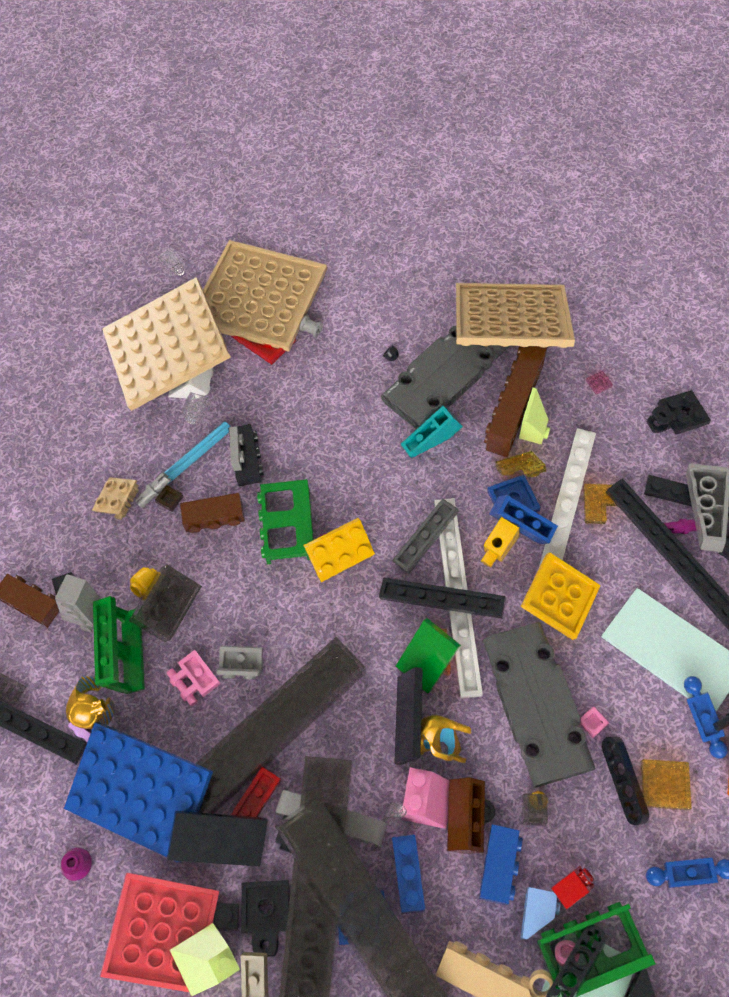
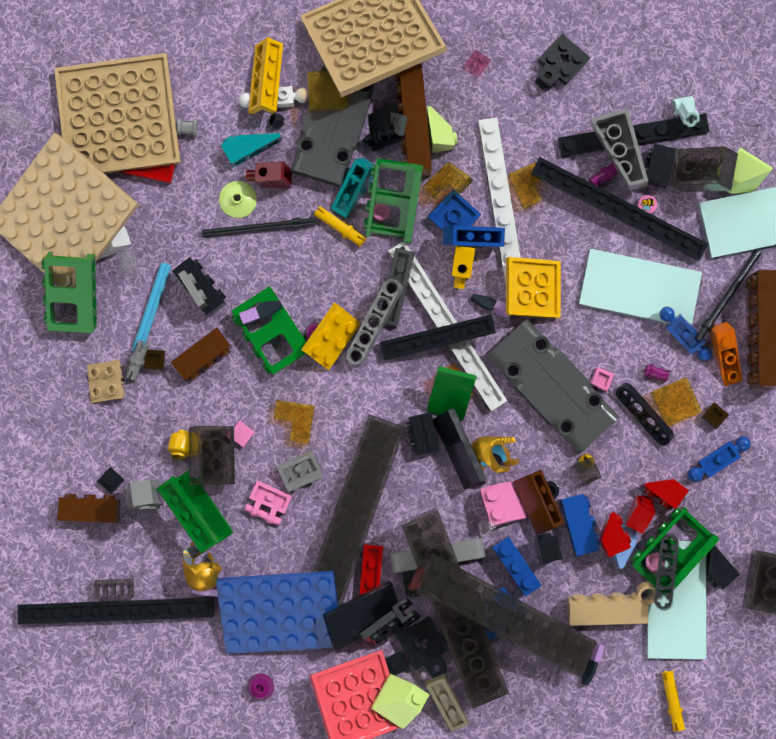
camera: 35 degrees left, 20 degrees up
(139, 410) = (82, 295): none -> green window
(207, 601) = (242, 434): none -> bright pink tile
(241, 864) = (390, 624): none -> black plate
(270, 611) = (300, 415): none -> clear yellow plate
(286, 496) = (261, 311): none -> piece
(322, 408) = (239, 208): none -> yellowish green dish
(354, 361) = (243, 147): none -> teal slope
(361, 441) = (295, 223): none -> black bar
(362, 390) = (271, 175): none -> dark red torso
(381, 685) = (423, 433): none -> black brick
(392, 546) = (366, 328): none -> light grey beam
(398, 335) = (285, 97): none -> white plate
(401, 313) = (266, 74): none -> yellow fence
(404, 467) = (346, 230): none -> yellow pin
(443, 344) = (323, 92): none -> clear yellow plate
(445, 465) = (381, 212): none -> bright pink tile
(451, 870) = (547, 548): none -> black brick
(472, 460) = (405, 199): none -> green window
(483, 397) = (381, 129): none -> black hinge
(500, 389) = (399, 122): none -> dark grey tile
(511, 594) = (490, 304): none -> black piece
(530, 896) = (613, 537): none -> red slope
(615, 877) = (668, 491): none -> red slope
(656, 743) = (657, 373): none -> magenta pin
(704, 821) = (714, 415): none -> dark brown plate
(716, 571) = (647, 203): none -> tile

